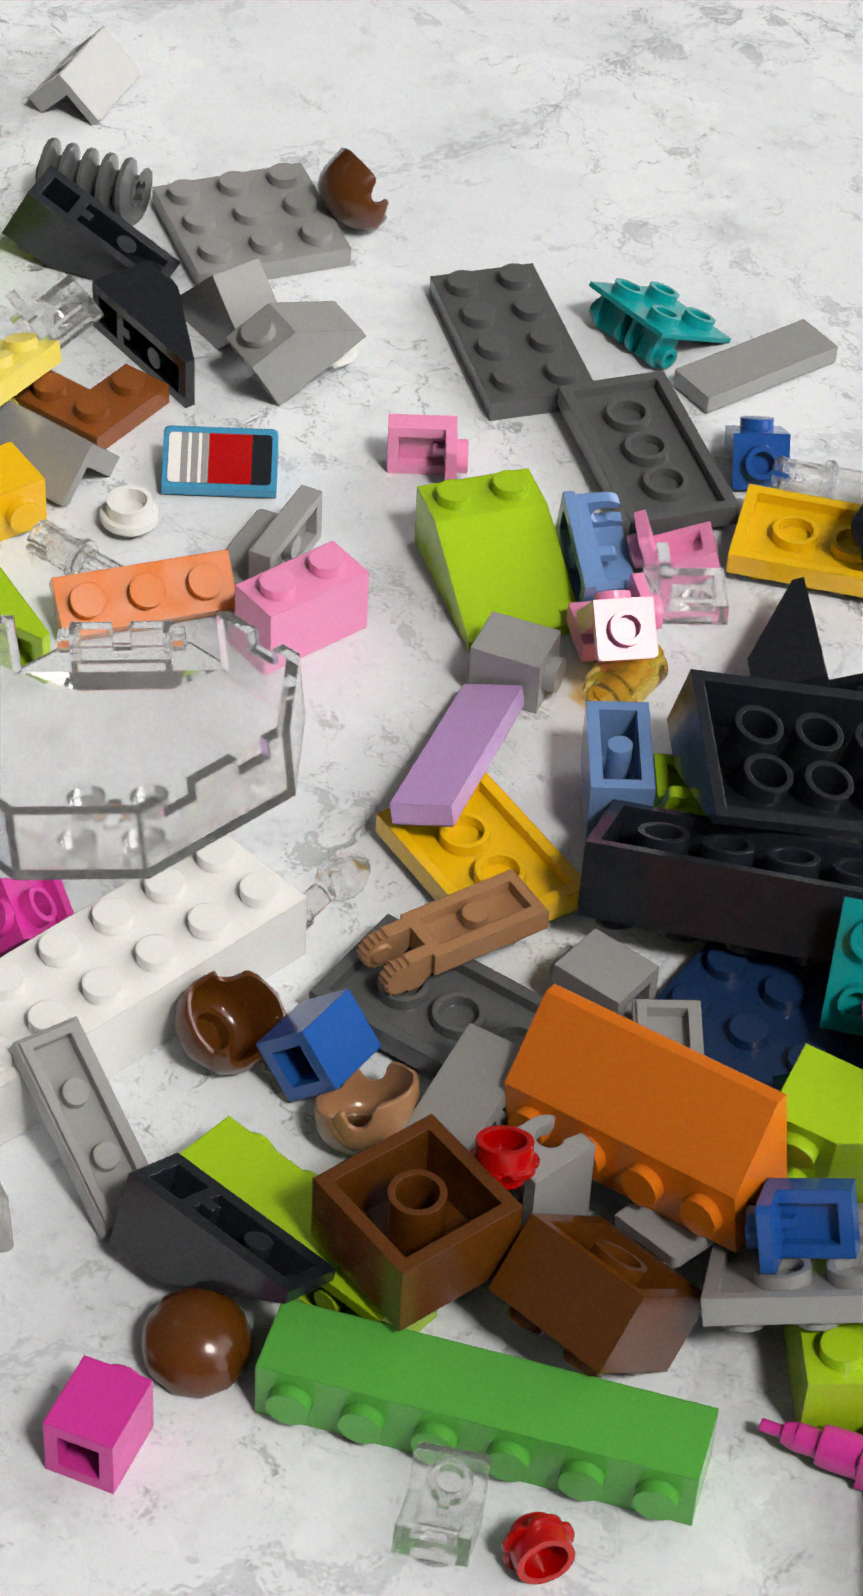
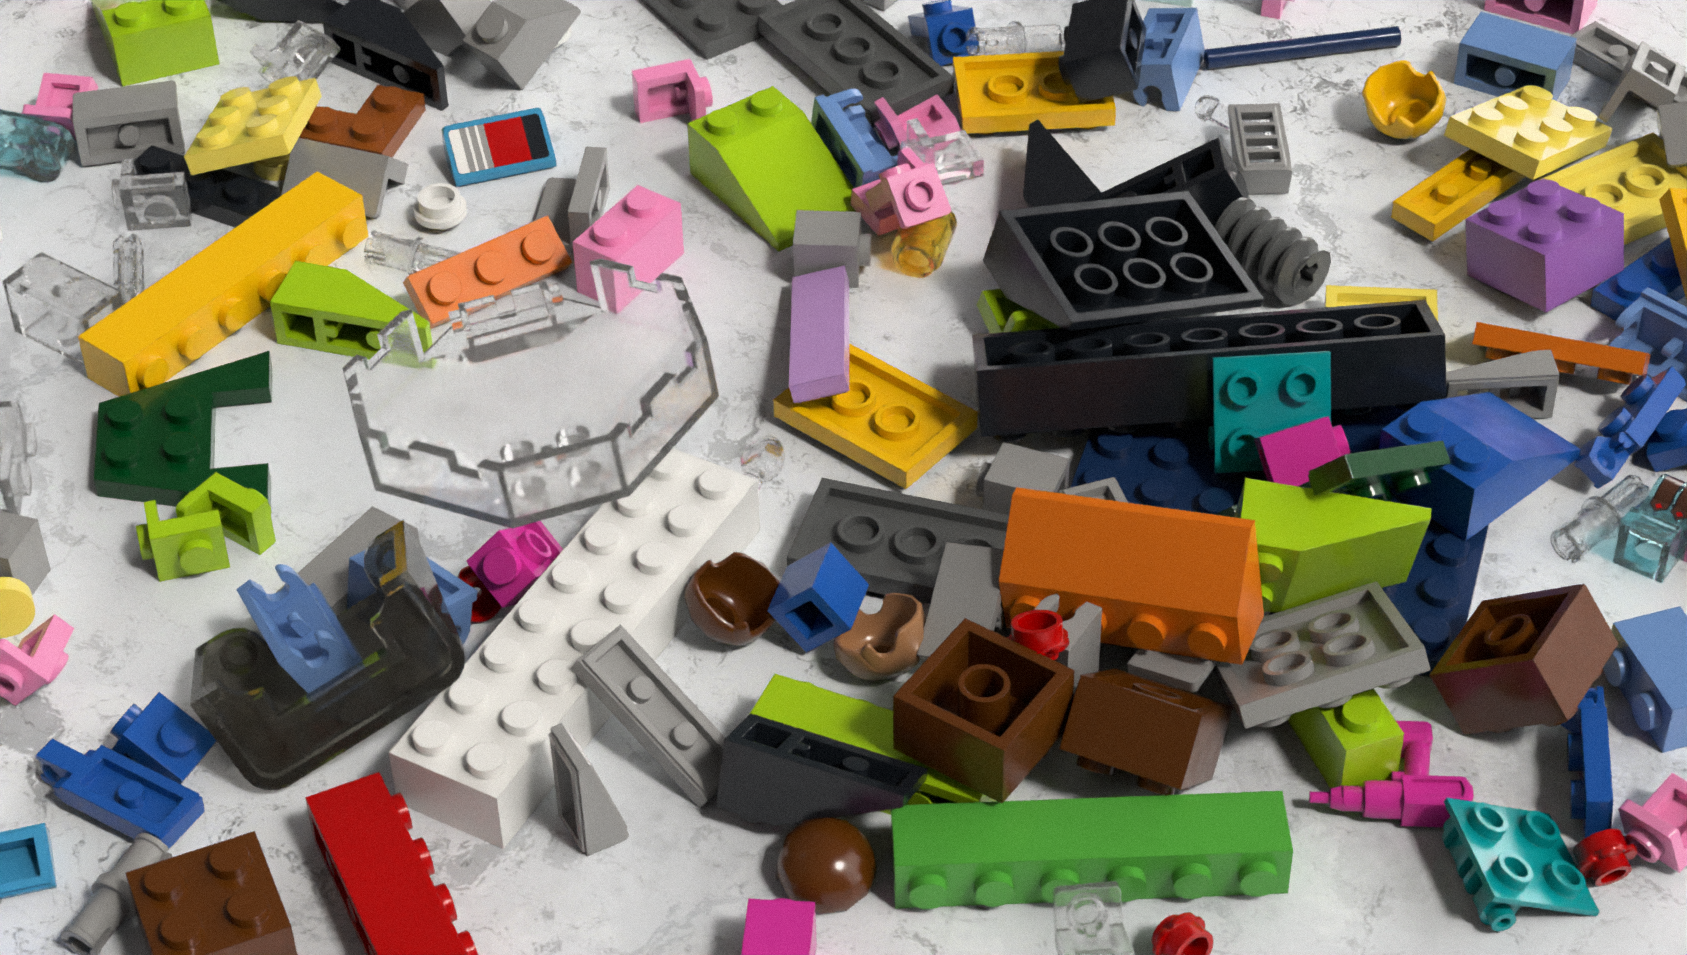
camera: 15 degrees left, 0 degrees up
(453, 931) = (889, 475): medium nougat hinge -> none
(615, 757) = (952, 307): medium blue brick -> none
(803, 1221) = (1294, 620): blue bracket -> none

